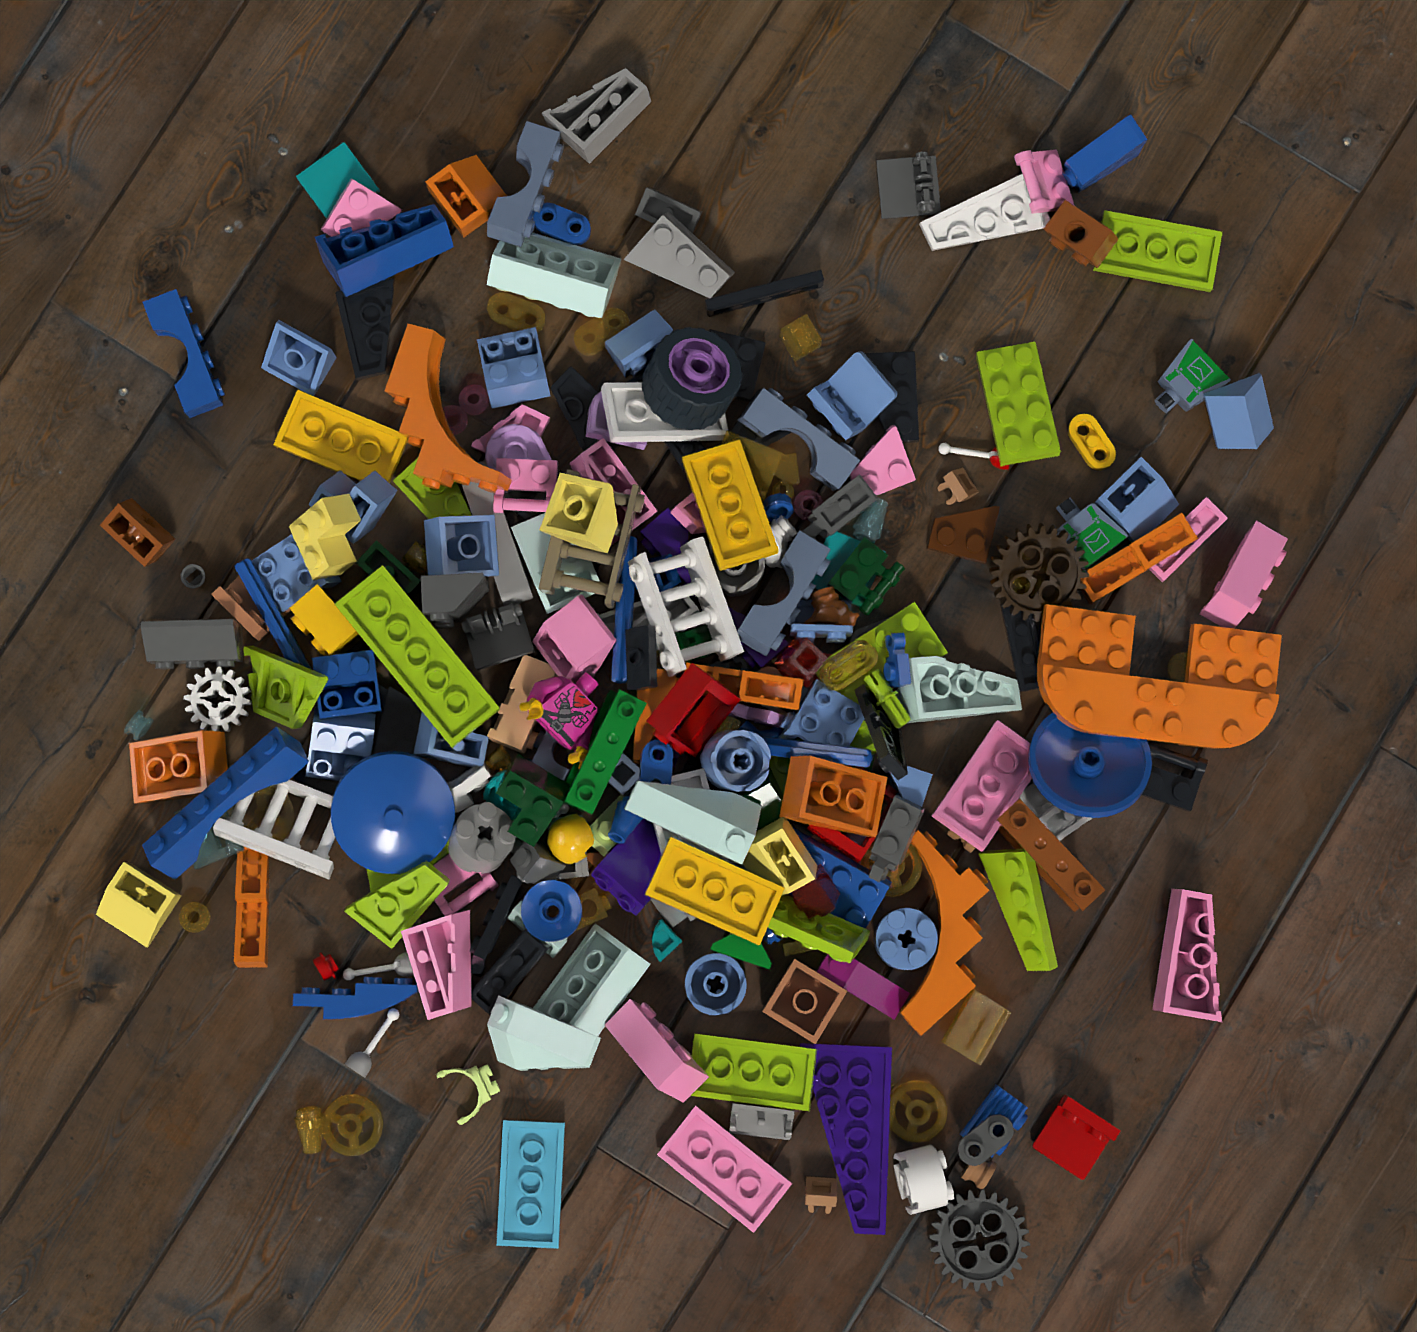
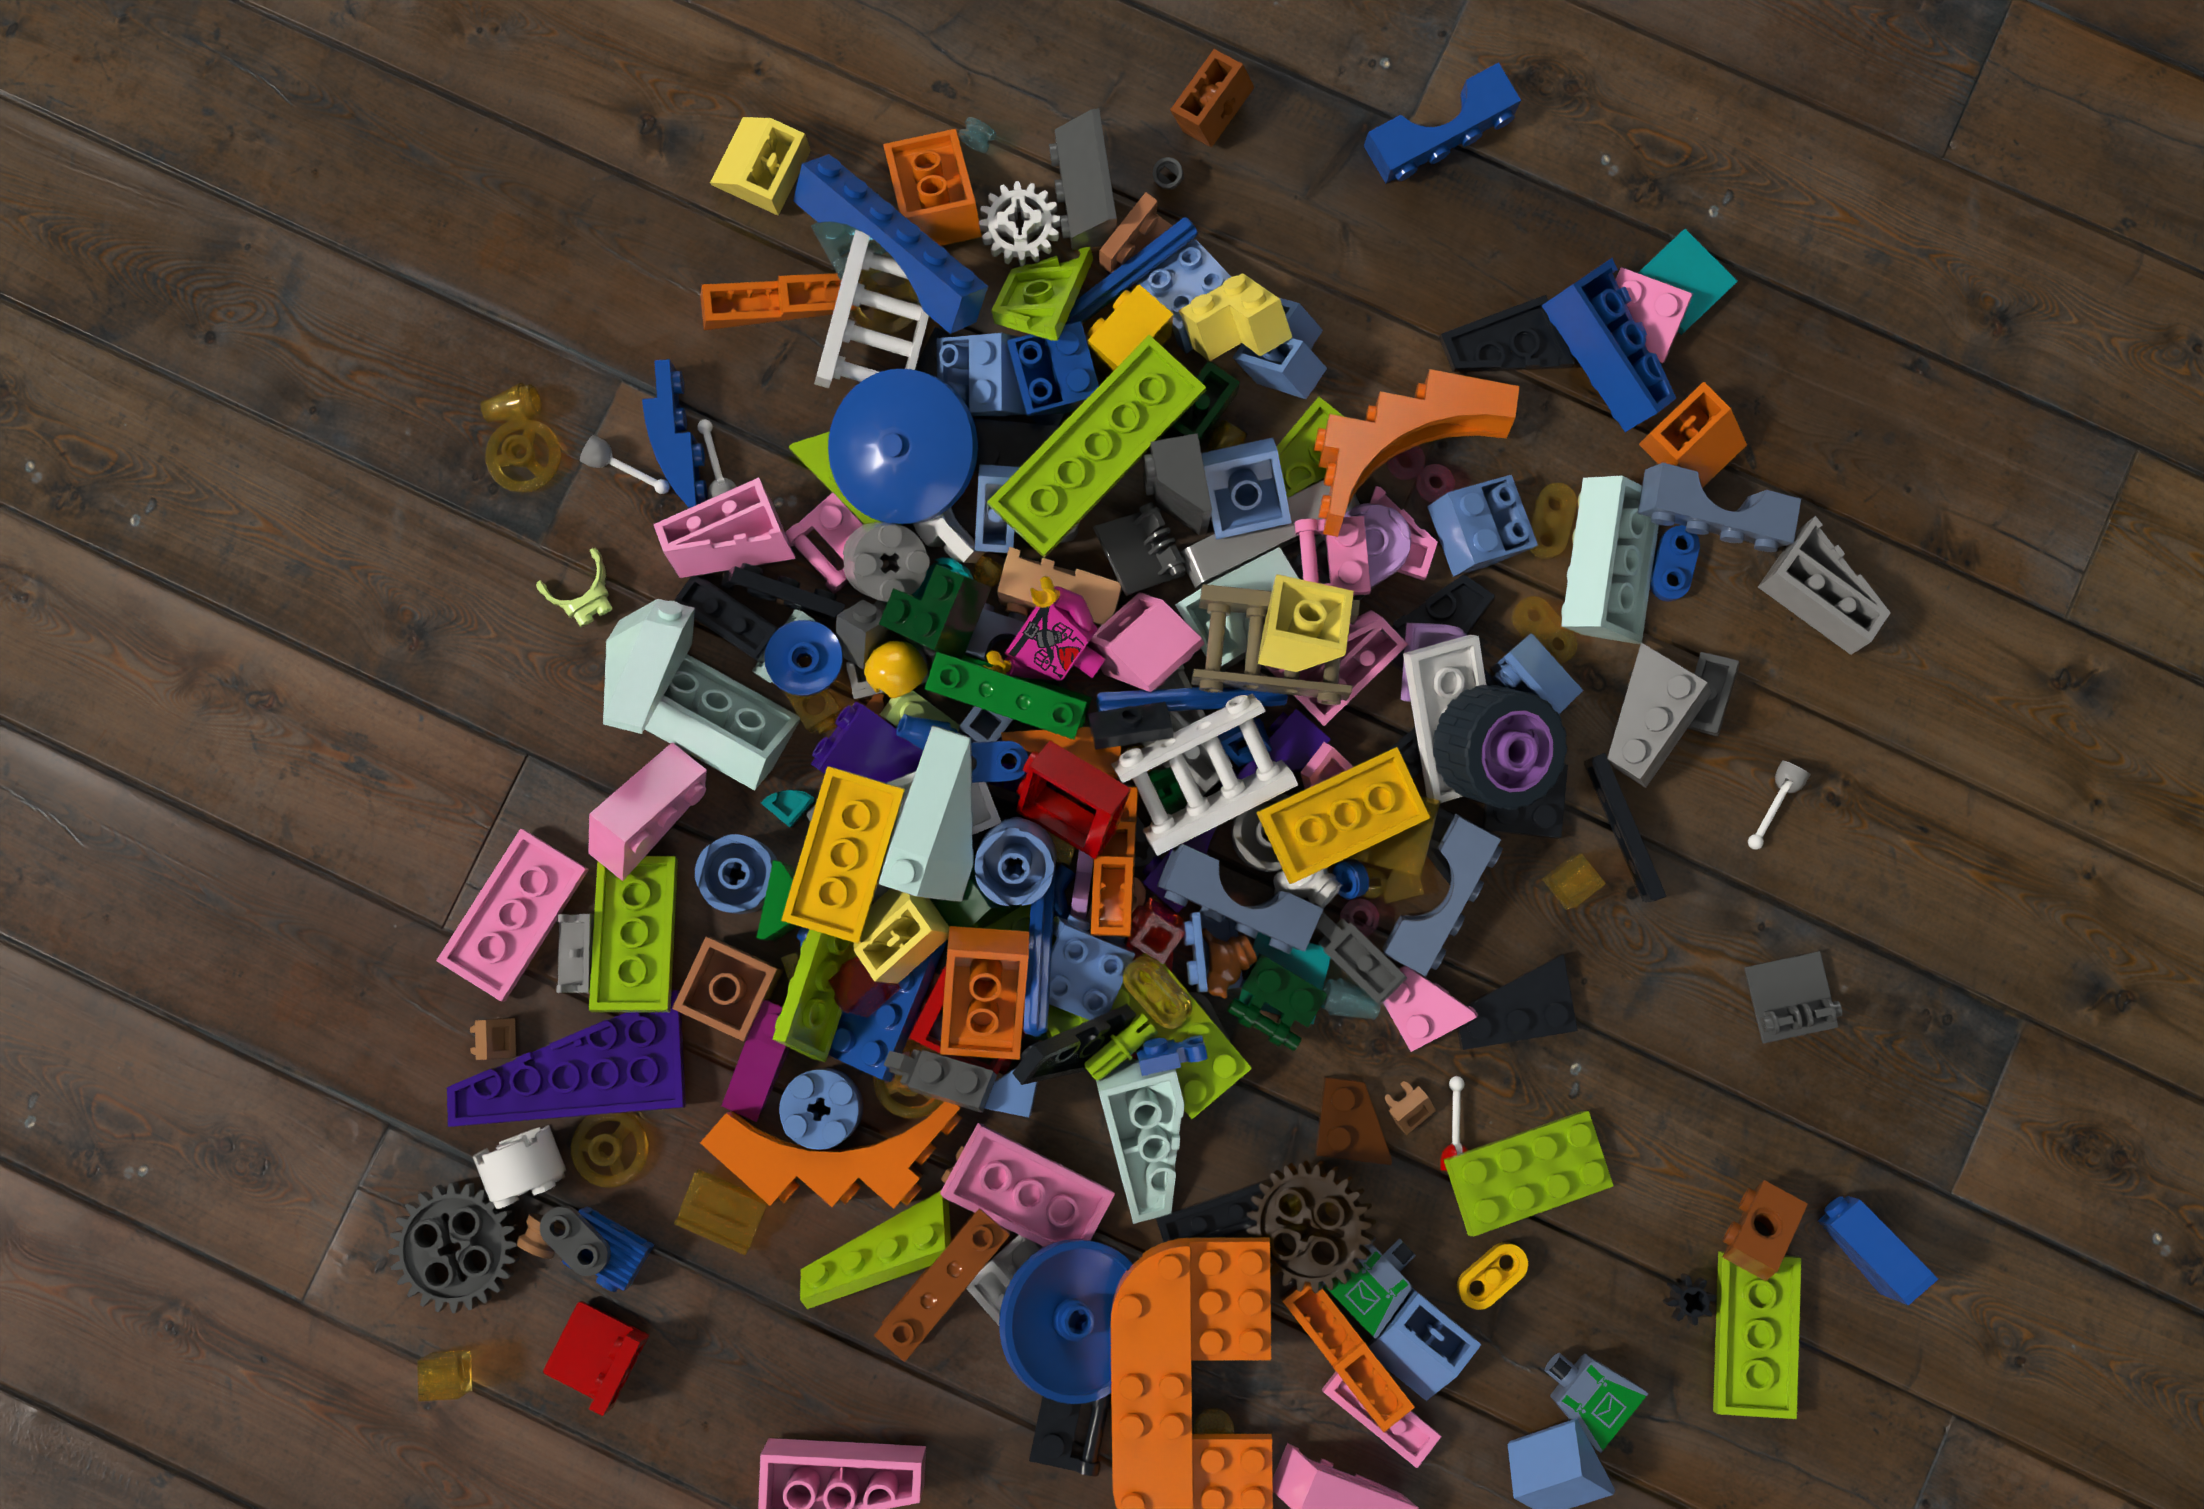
camera: 85 degrees right, 0 degrees up
(204, 917) = (755, 244): clear yellow plate -> none
(297, 358) = (1455, 261): medium blue slope -> none
(325, 966) = (710, 396): red plate -> none
(339, 439) = (1362, 326): yellow plate -> none
(398, 902) = (795, 471): lime wing -> none
(530, 1184) = (471, 678): medium azure plate -> none
(743, 162) = (1789, 780): none -> hinge
(853, 396) = (1507, 957): medium blue bracket -> none
(987, 216) = (1774, 1114): white wing -> none
(1044, 180) = (1829, 1172): bright pink plate -> none
(1077, 1256) = (444, 1375): none -> clear yellow brick
(1126, 306) = (1701, 1303): none -> black gear

